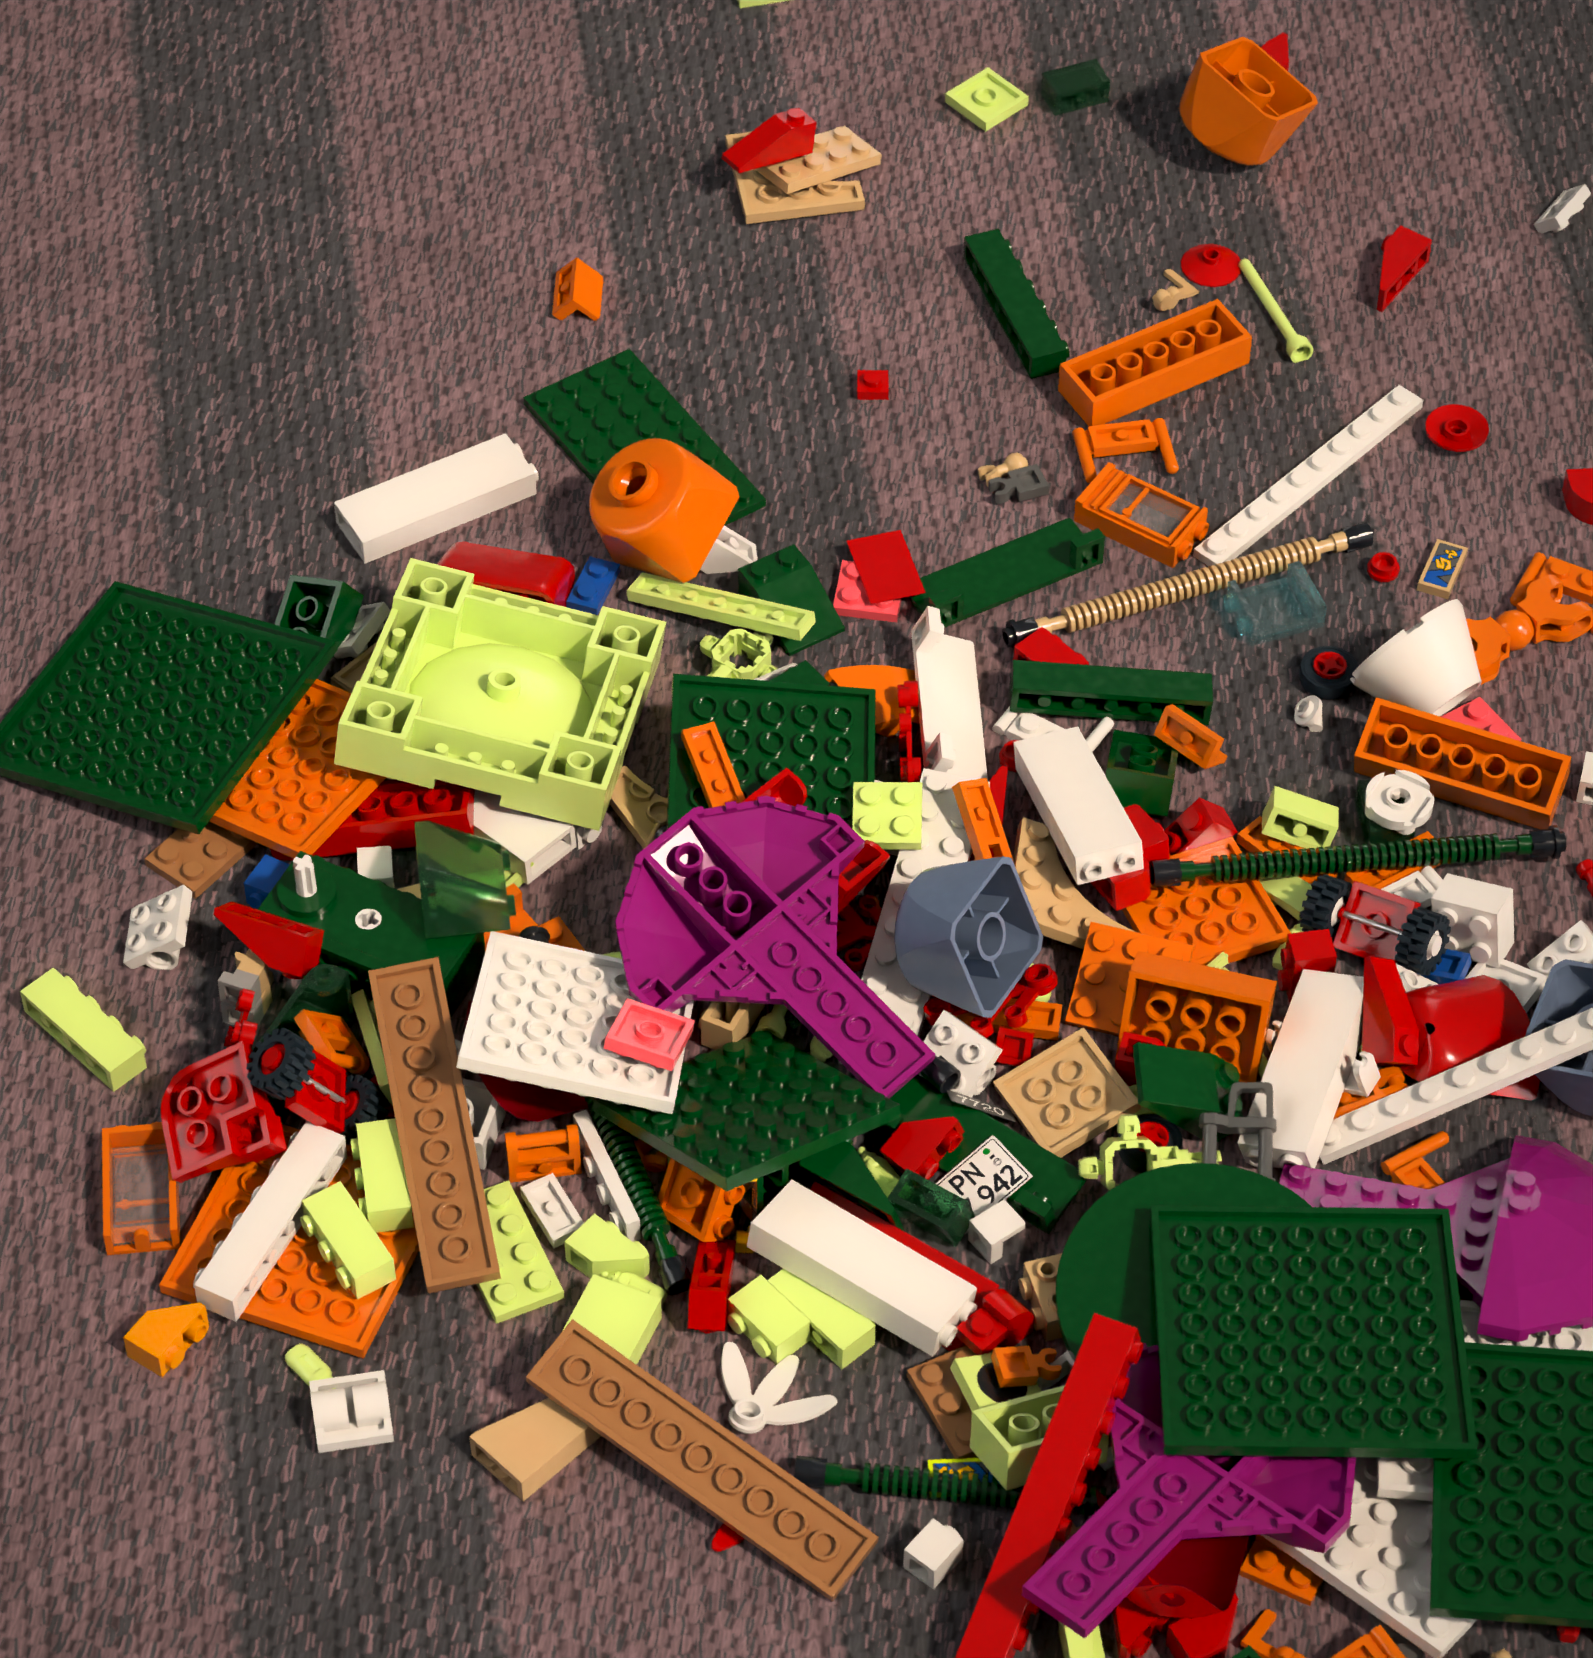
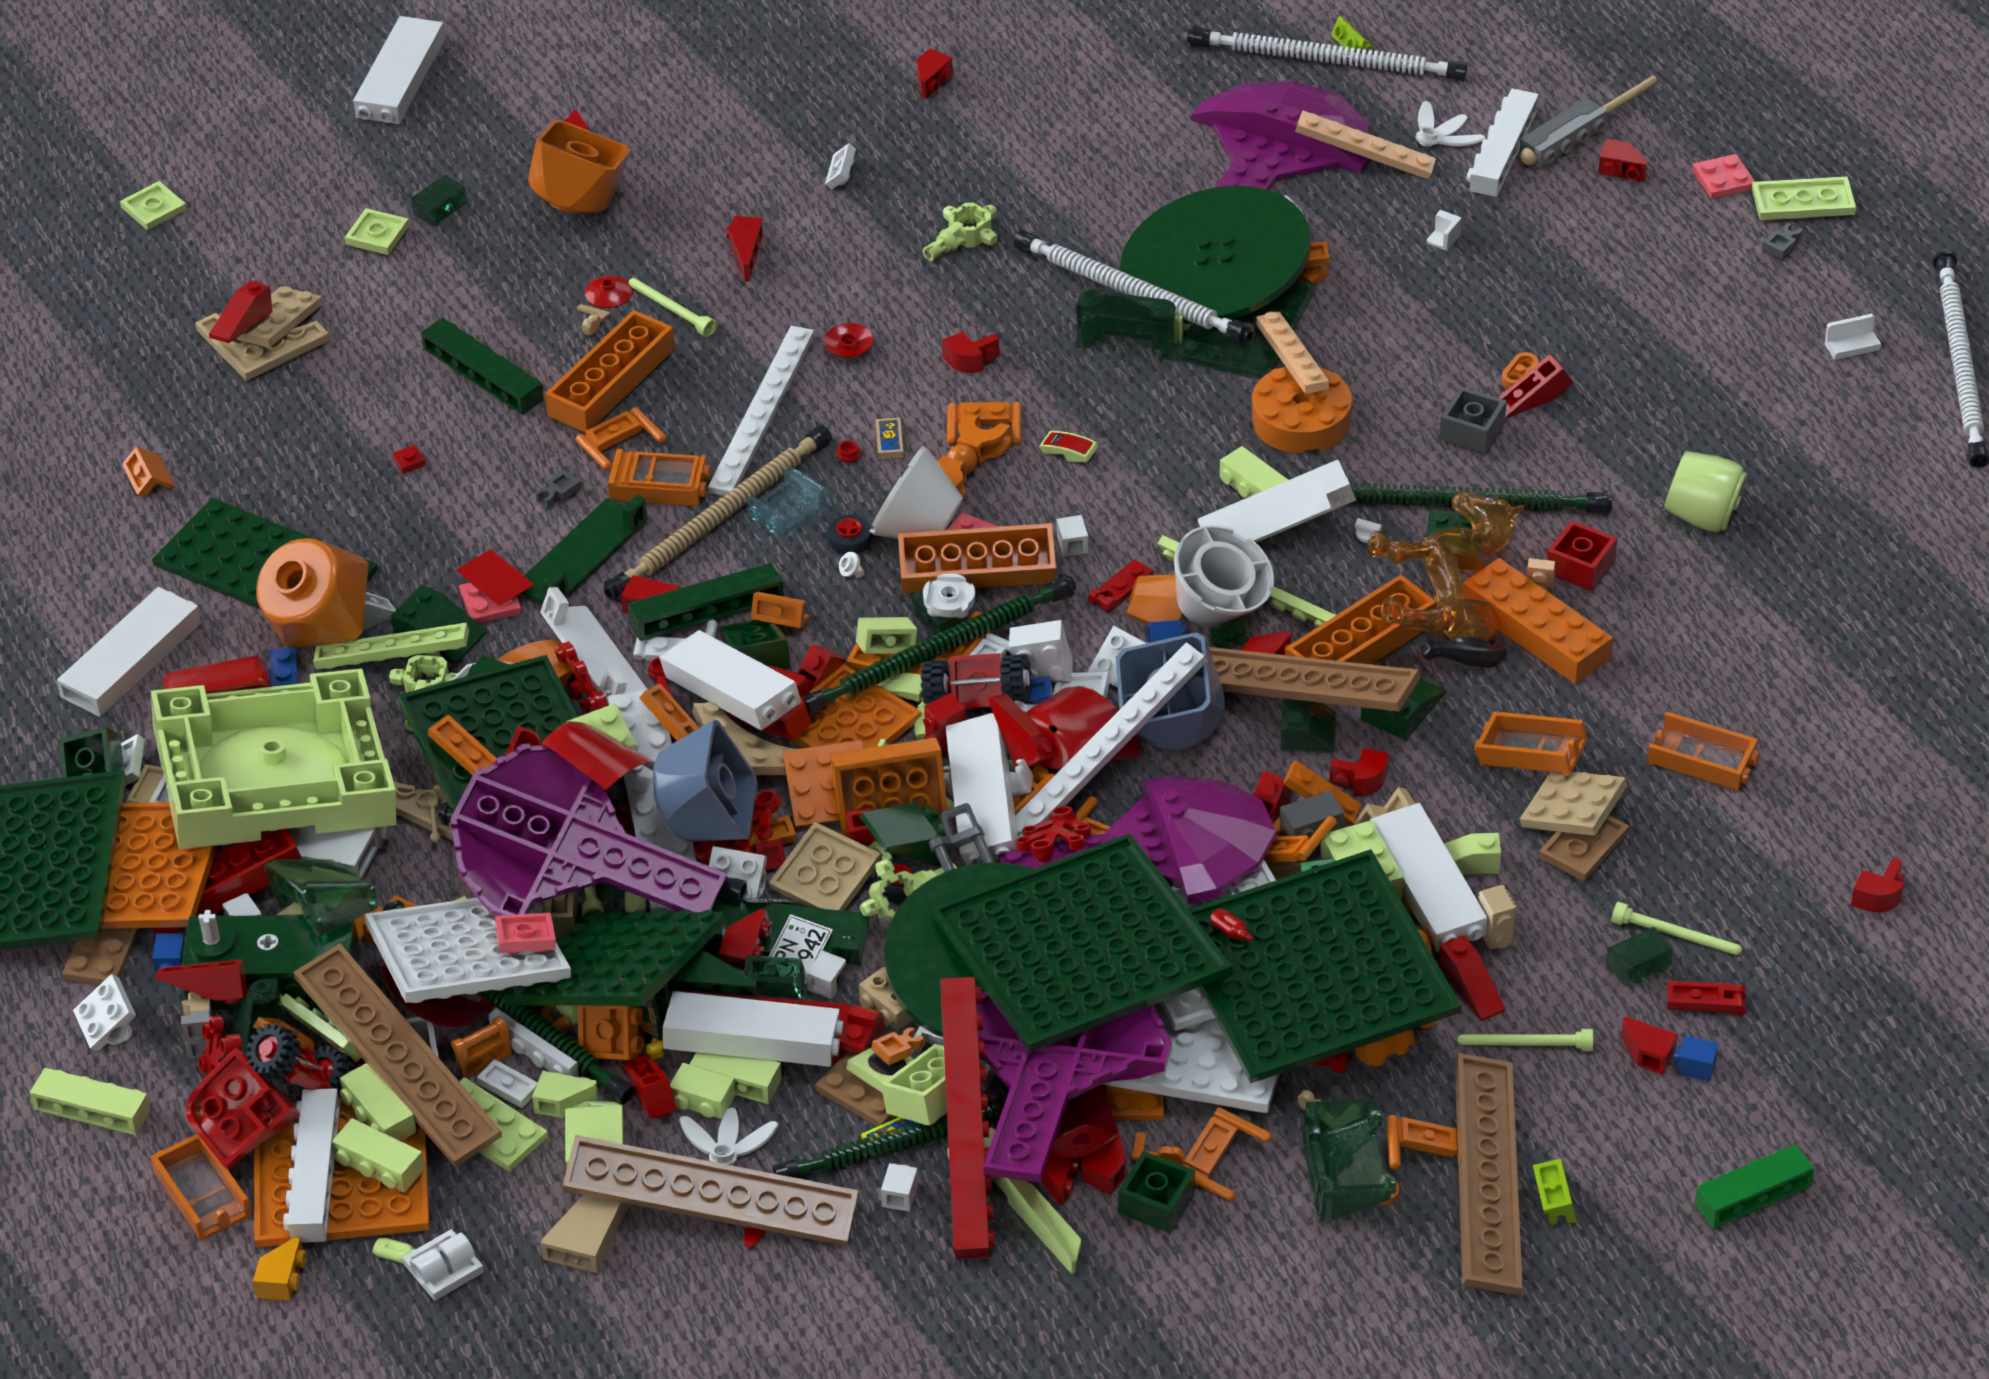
camera: 25 degrees left, 5 degrees down
(851, 838) = (595, 752): none -> red piece
(1012, 462) = (543, 475): tan arm -> none
(1387, 1147) = (1051, 829): none -> red plant
(1510, 1388) = (1230, 925): none -> red piece

